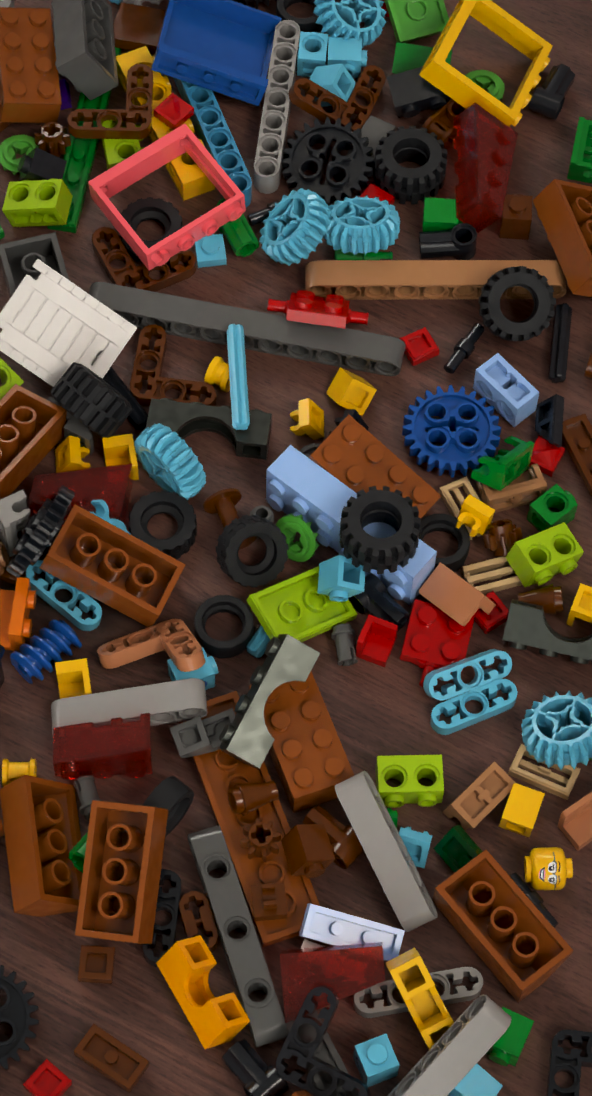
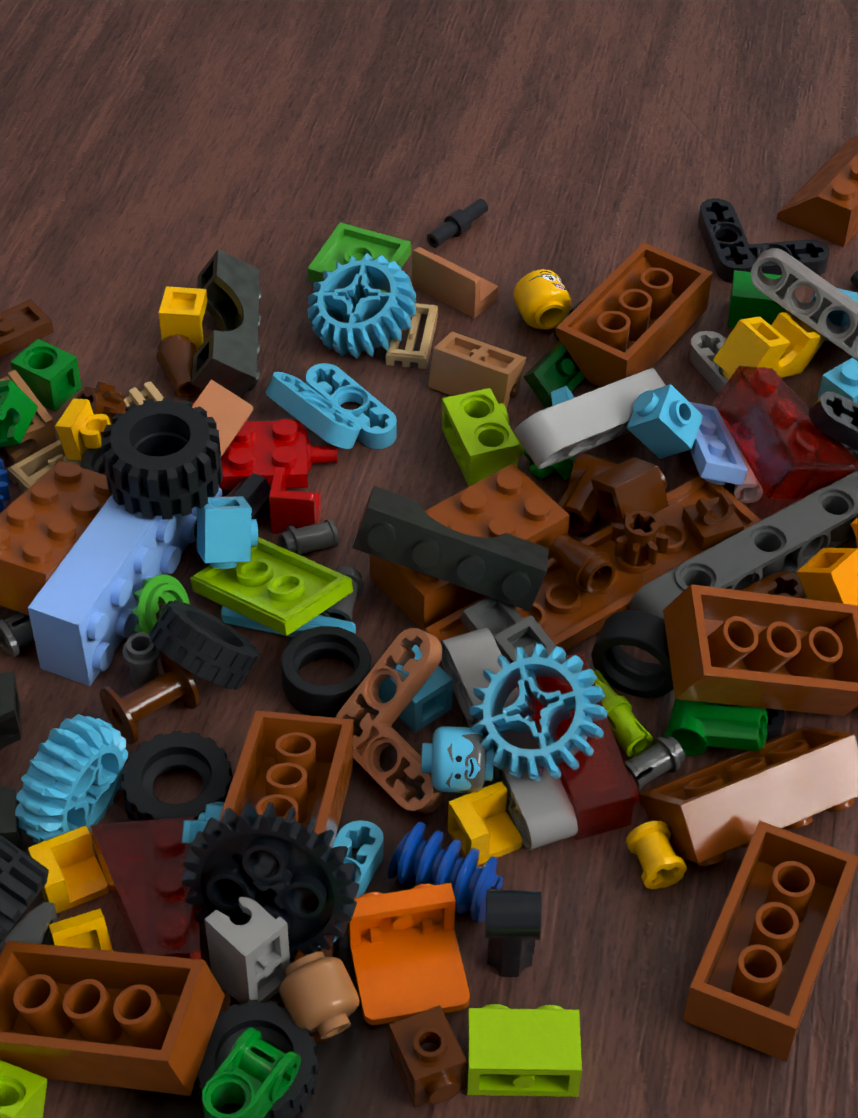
camera: 105 degrees left, 15 degrees down
(108, 666) = (457, 760): none -> medium azure head
(109, 705) = (557, 708): none -> medium azure gear
(132, 788) = (624, 725): none -> lime pin
(365, 894) = (665, 421): none -> medium azure brick
(521, 810) = (480, 322): yellow panel -> none
(545, 555) = (121, 361): lime brick -> none

